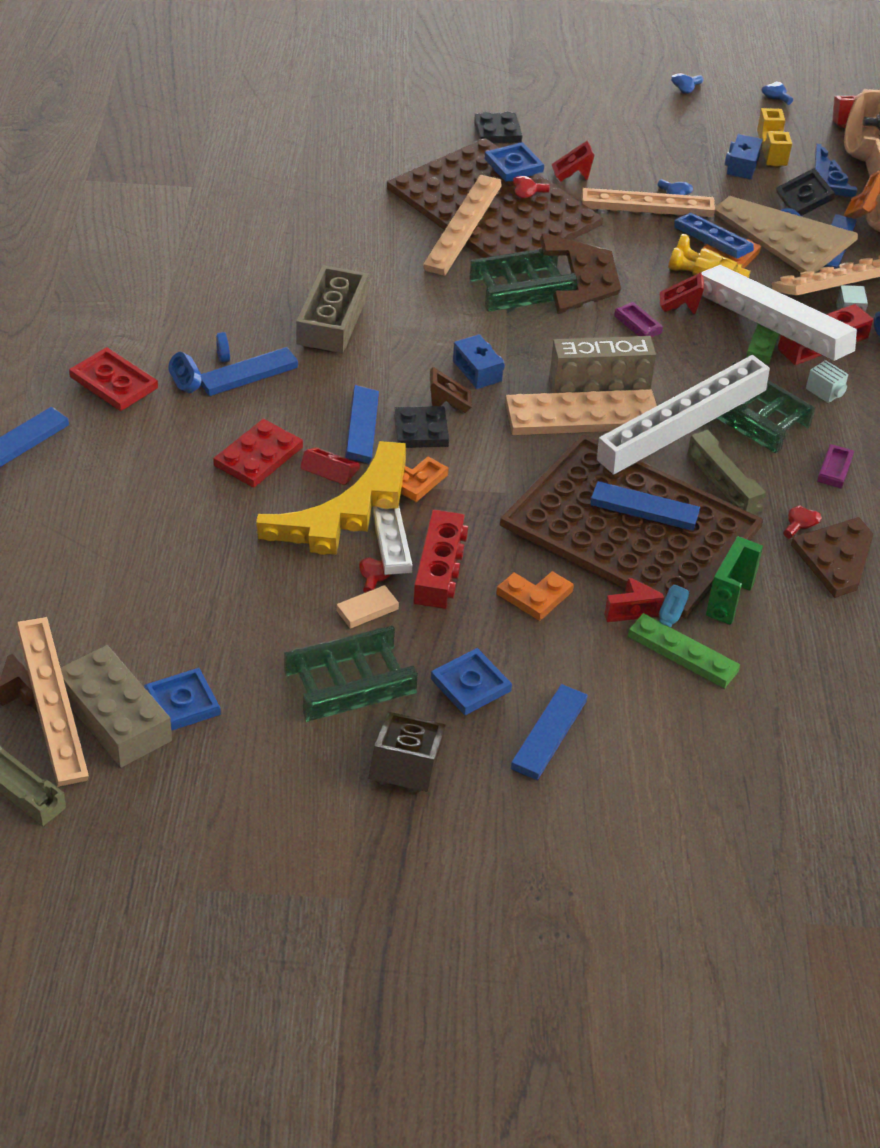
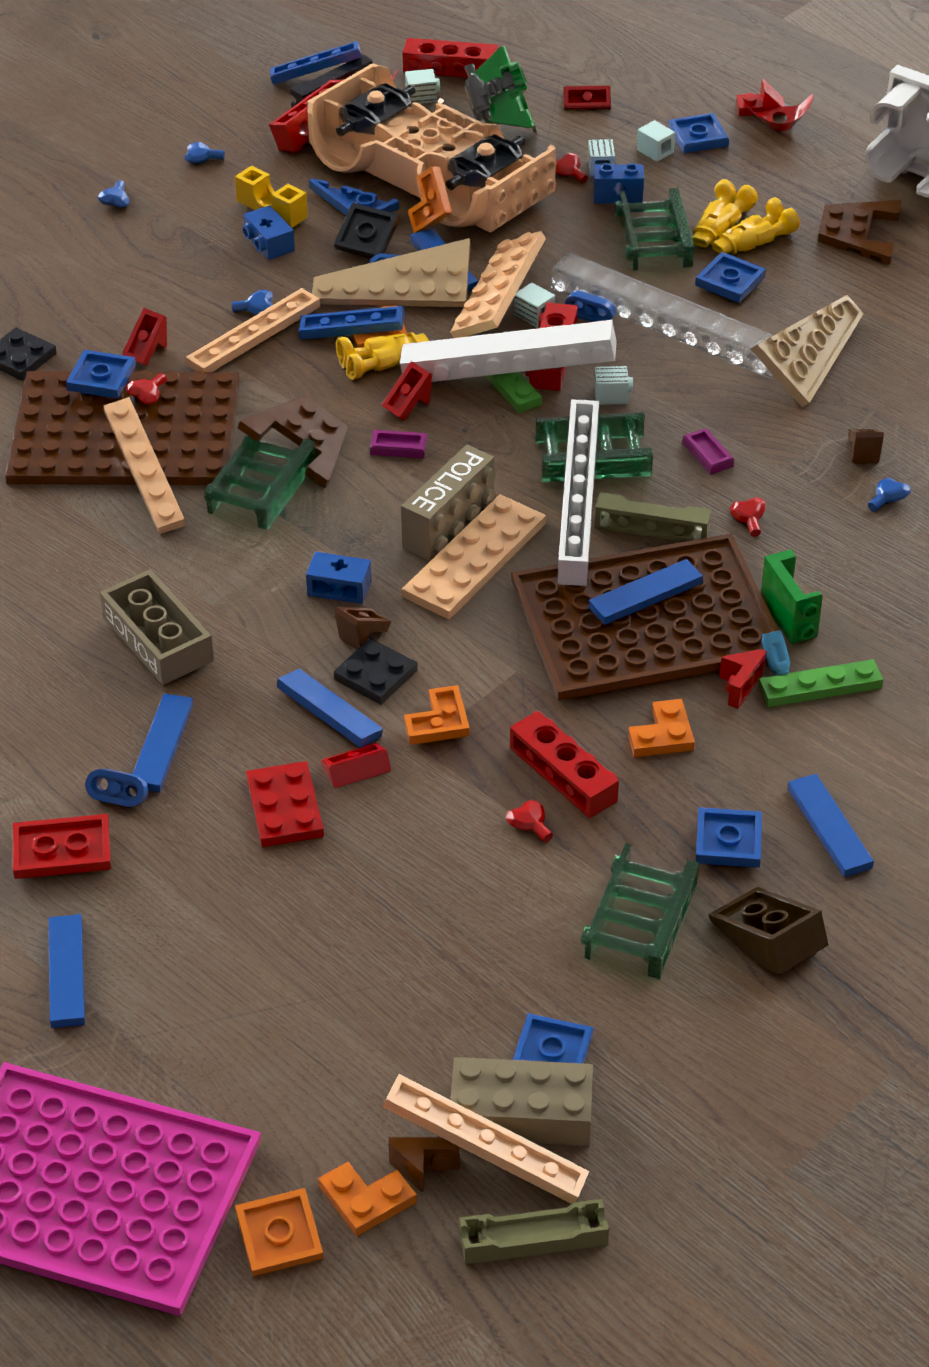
camera: 45 degrees left, 0 degrees up
(222, 347) = (114, 739): blue tile -> none
(349, 511) = (444, 748): yellow arch -> none
(367, 606) = (567, 850): light nougat tile -> none
(392, 540) = (504, 779): white tile -> none
(836, 554) = (808, 520): reddish brown plate -> none

